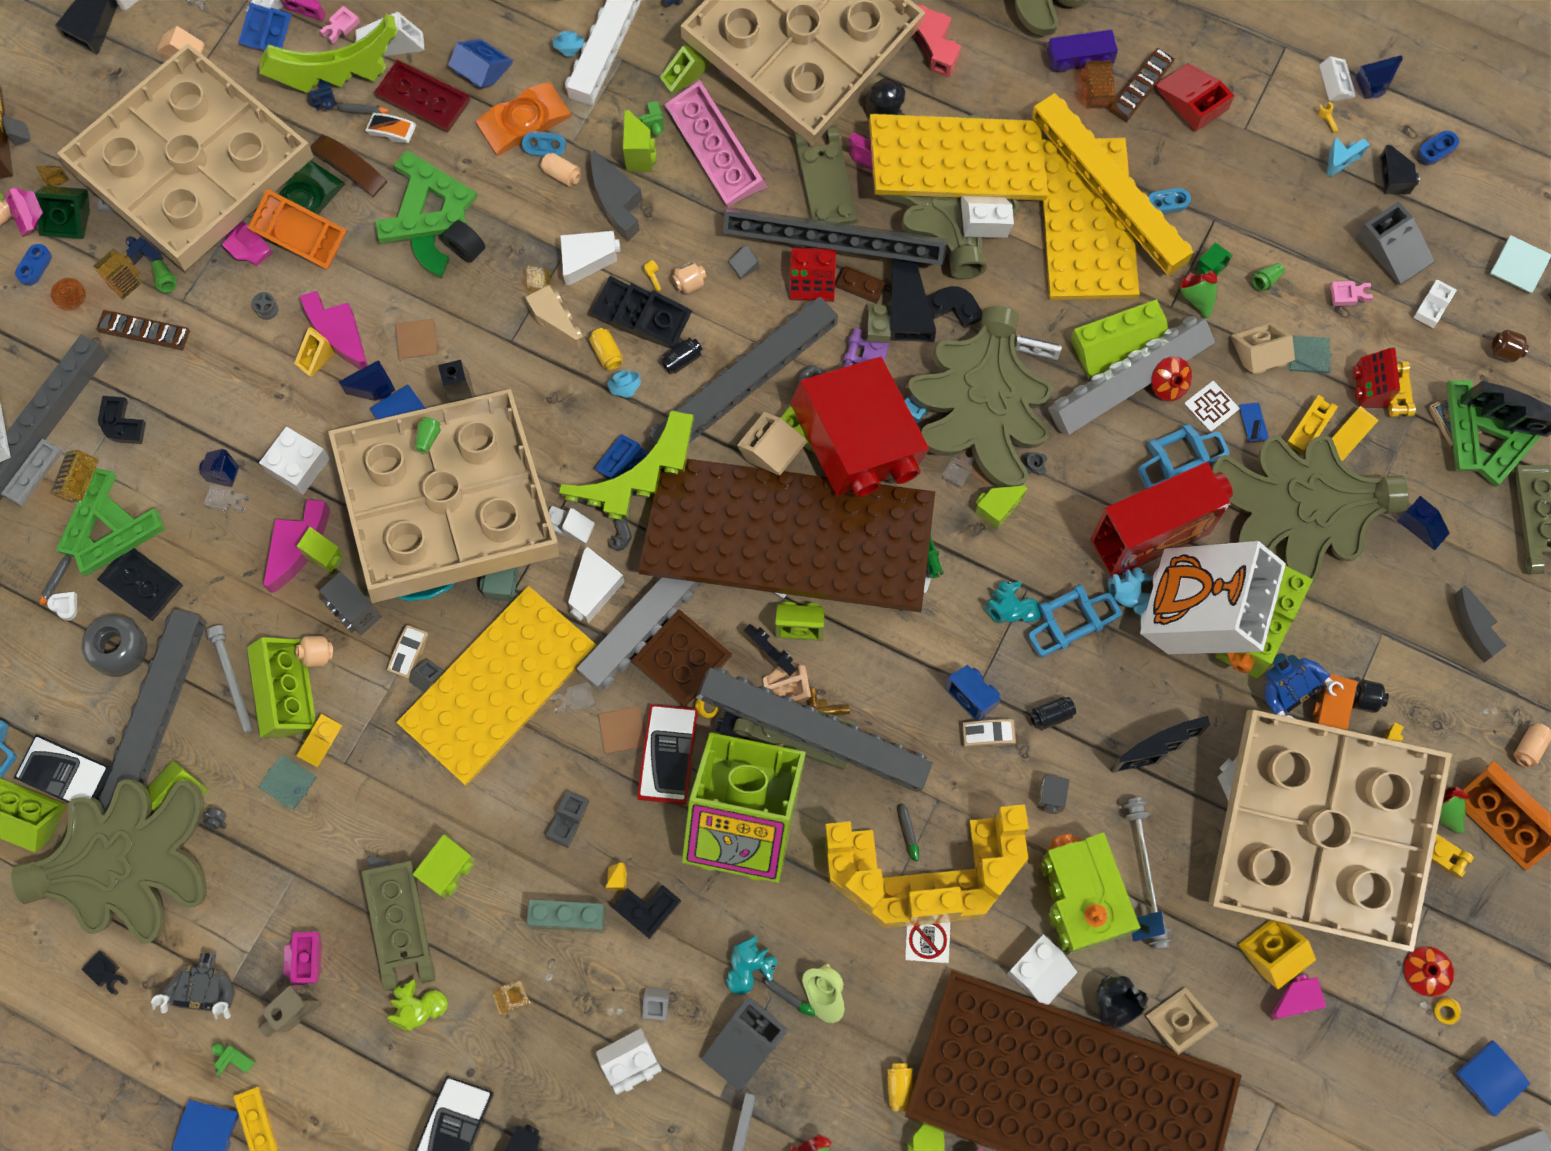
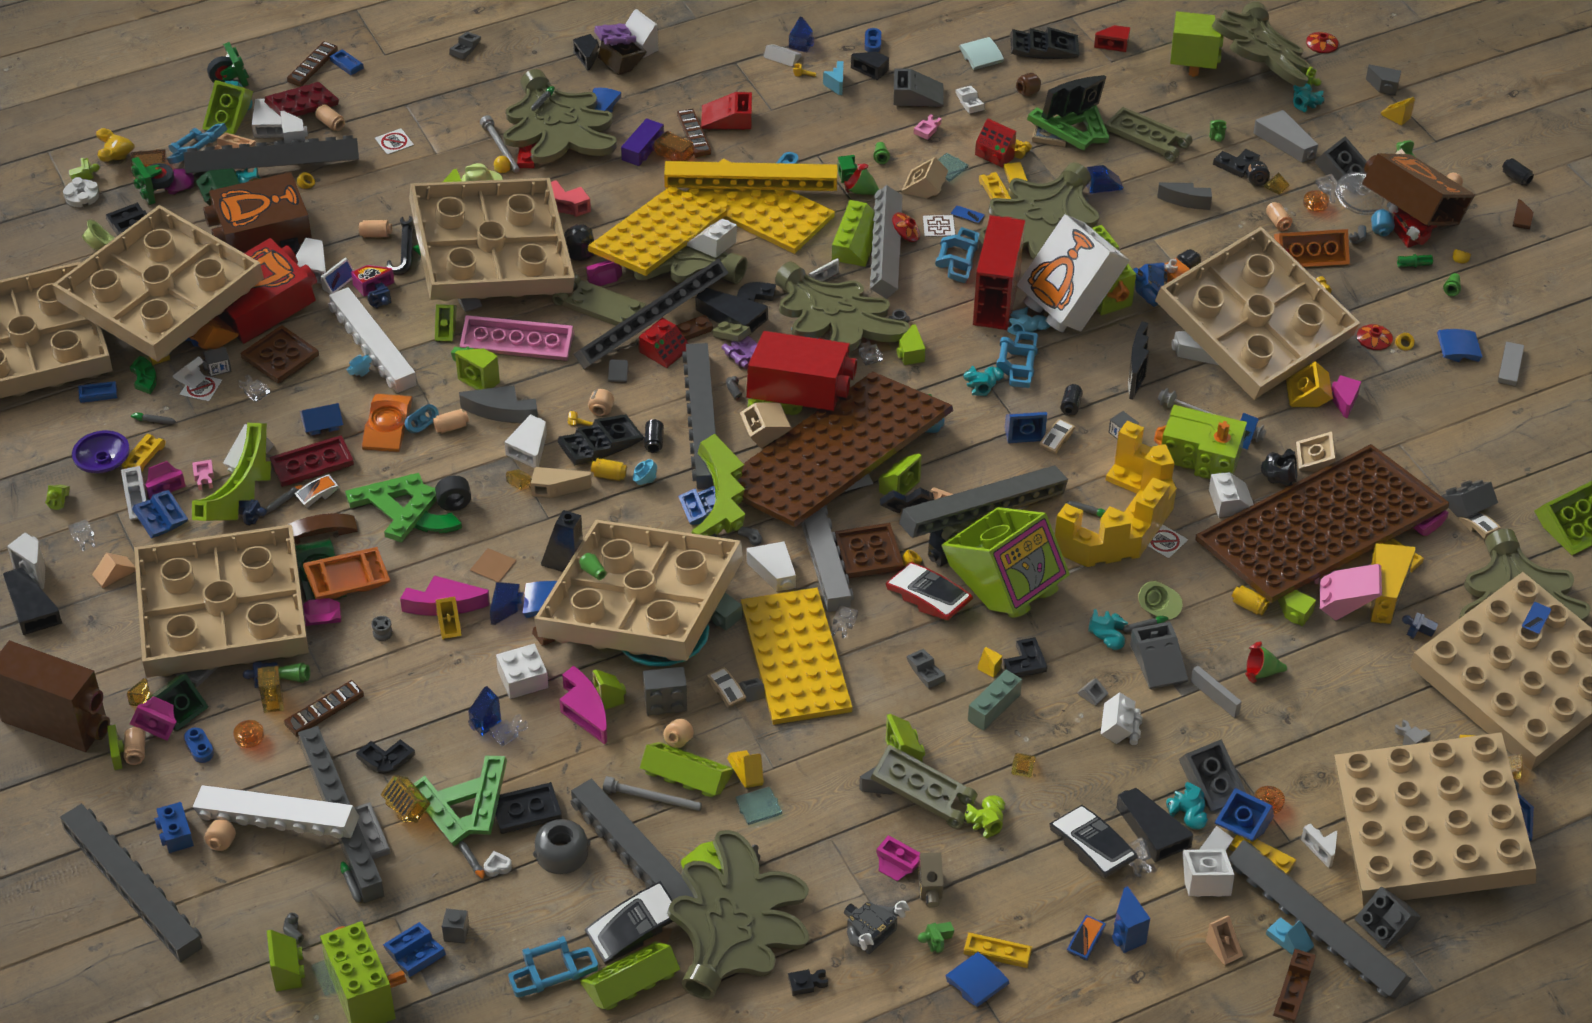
camera: 55 degrees left, 25 degrees down
(622, 729) = (887, 610): medium nougat sticker -> none

